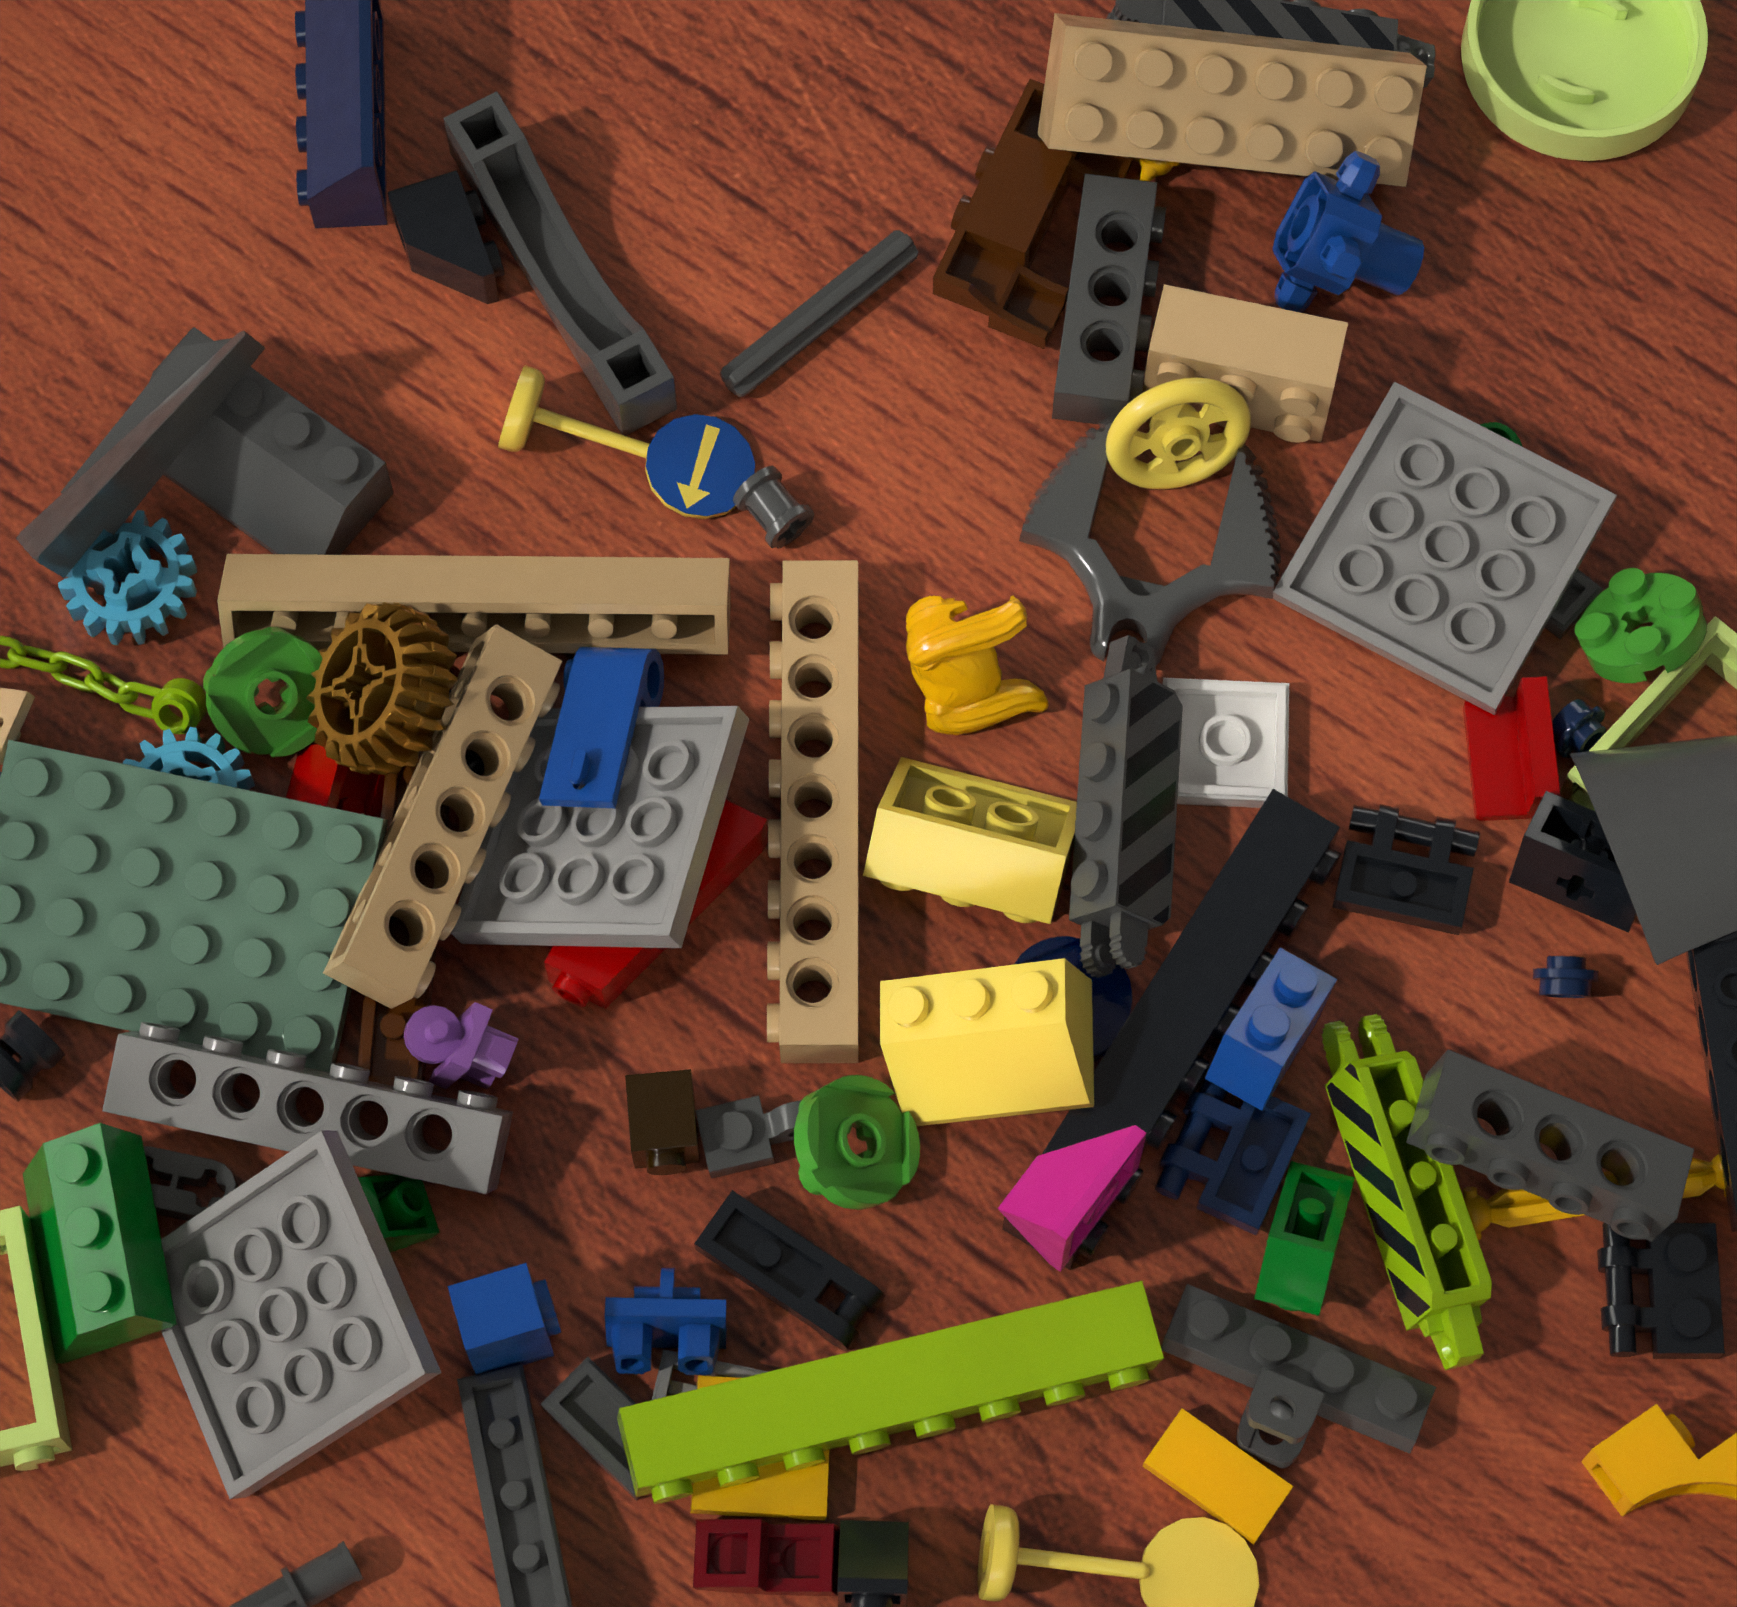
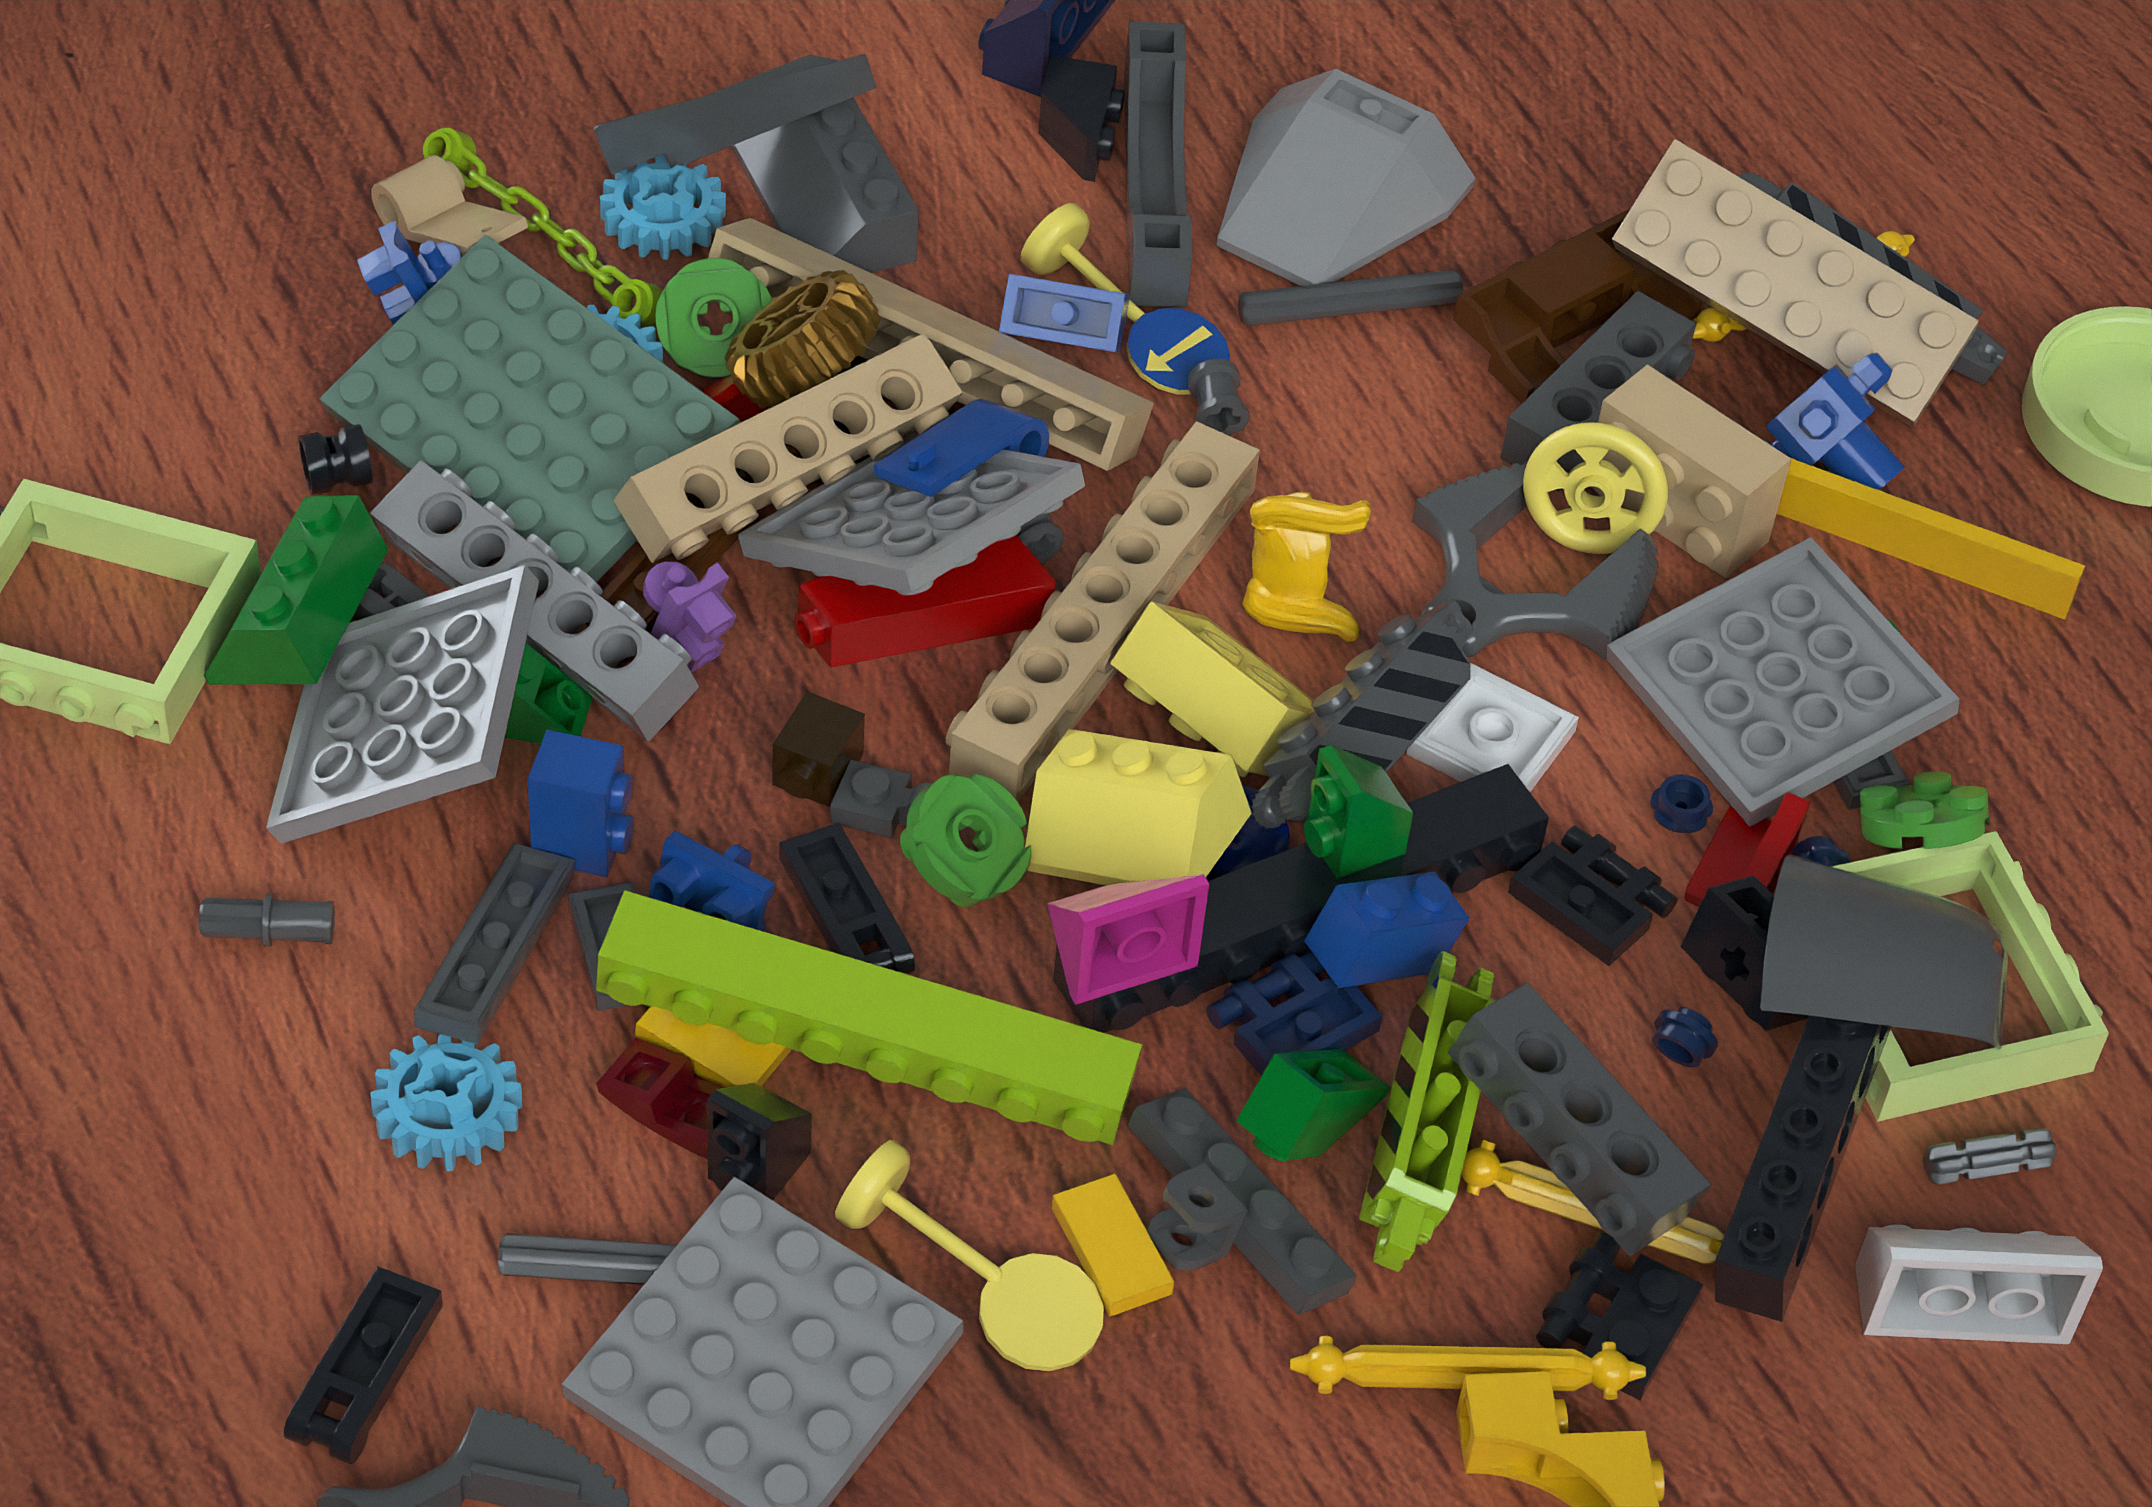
camera: 25 degrees right, 20 degrees down
(584, 496) = (1064, 313): none -> brick
(728, 186) = (1338, 179): none -> light grey wedge
(1193, 944) = (1355, 813): none -> green slope
(1430, 712) = (1682, 804): none -> dark blue plate
(1474, 304) = (1930, 539): none -> yellow tile
(1576, 1426) = (1446, 1366): none -> yellow wheel

